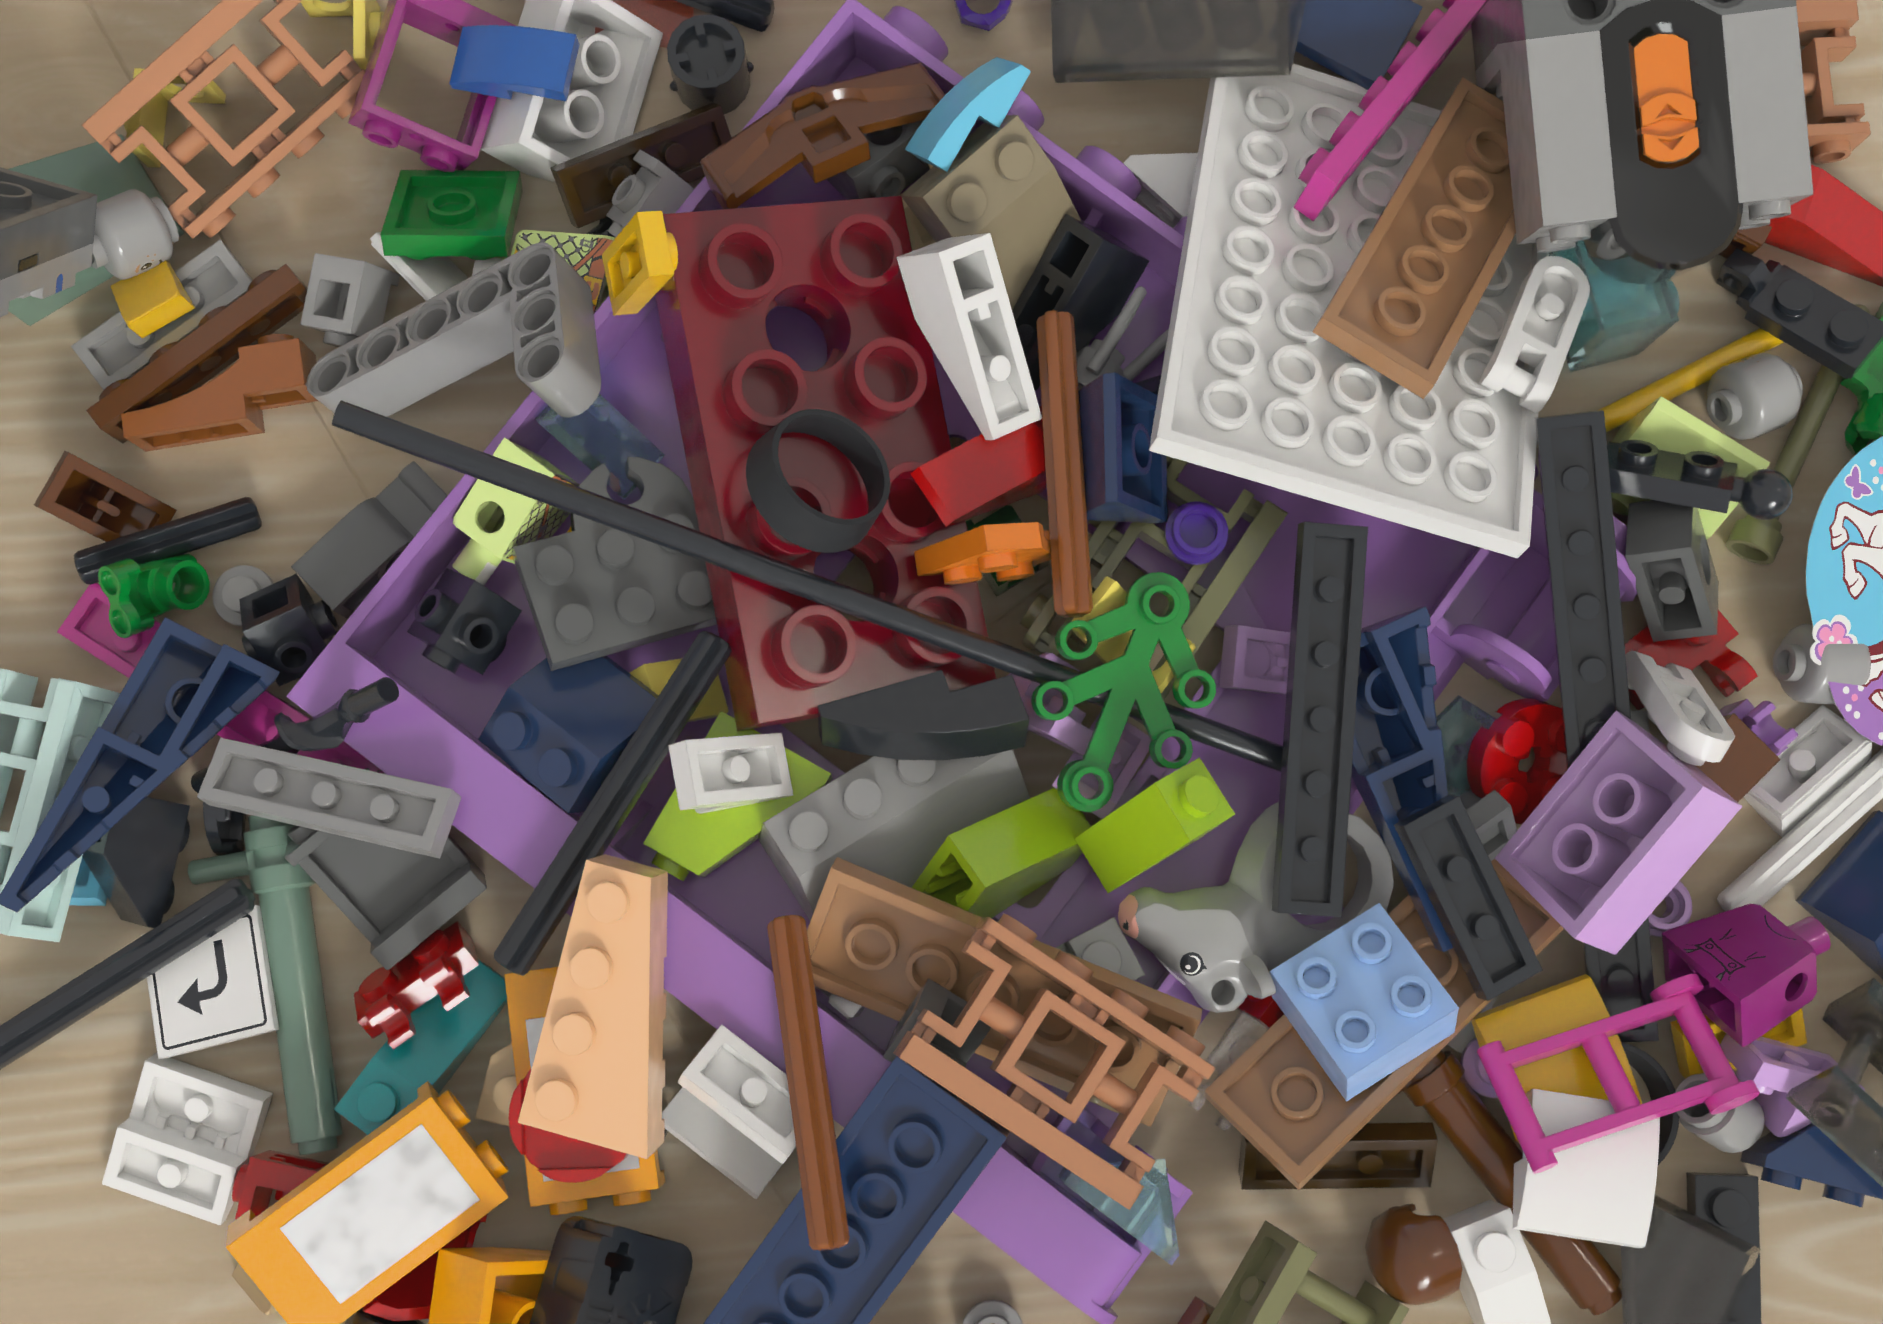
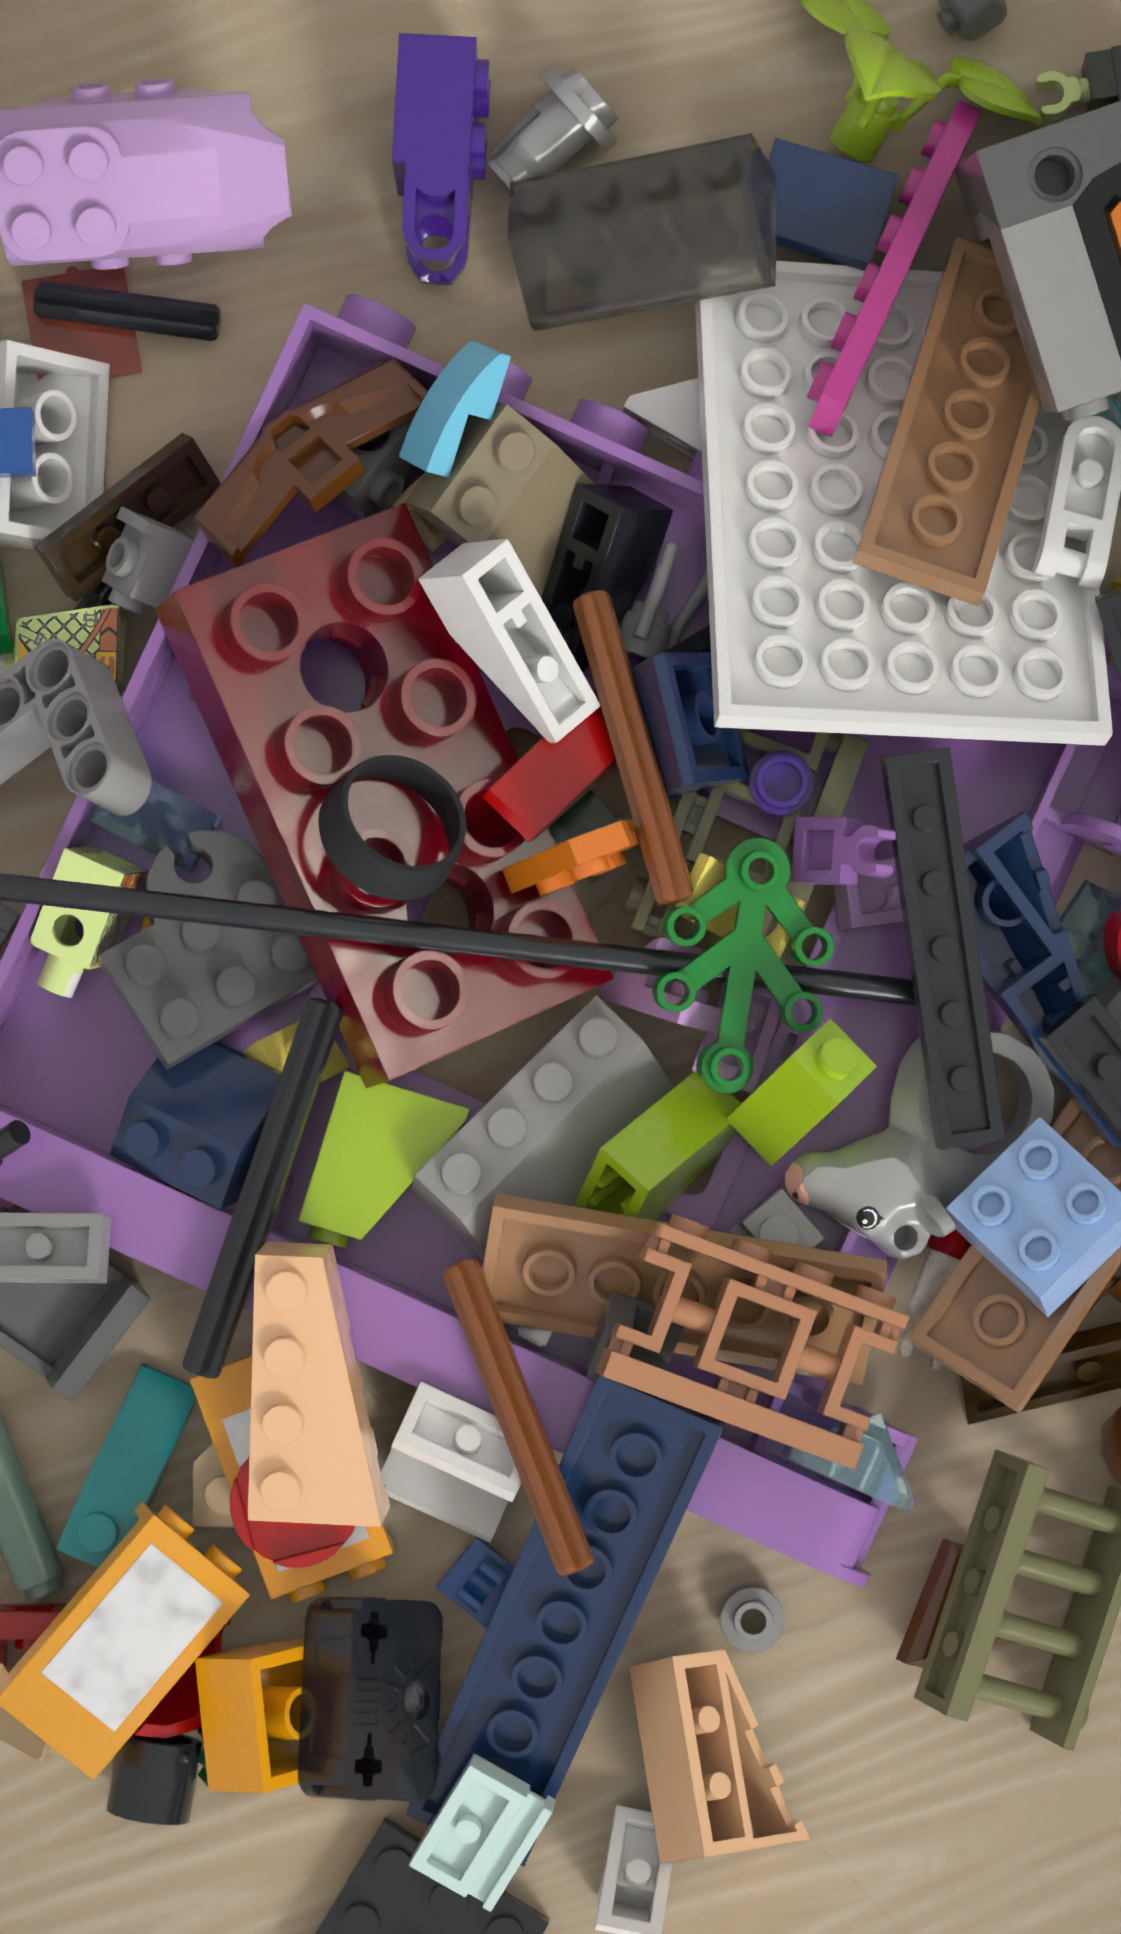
camera: 10 degrees left, 5 degrees up
(431, 969) = (118, 1387): red plate -> none
(463, 623) = (62, 1040): black brick -> none
(639, 262) = (161, 644): yellow plate -> none
(709, 63) = (168, 393): black piece -> none
(730, 771) = (371, 1131): white slope -> none
(735, 1233) = (477, 1580): none -> blue tile
(927, 720) = (553, 1037): black slope -> none
(1235, 601) = (836, 851): none -> medium lavender plate

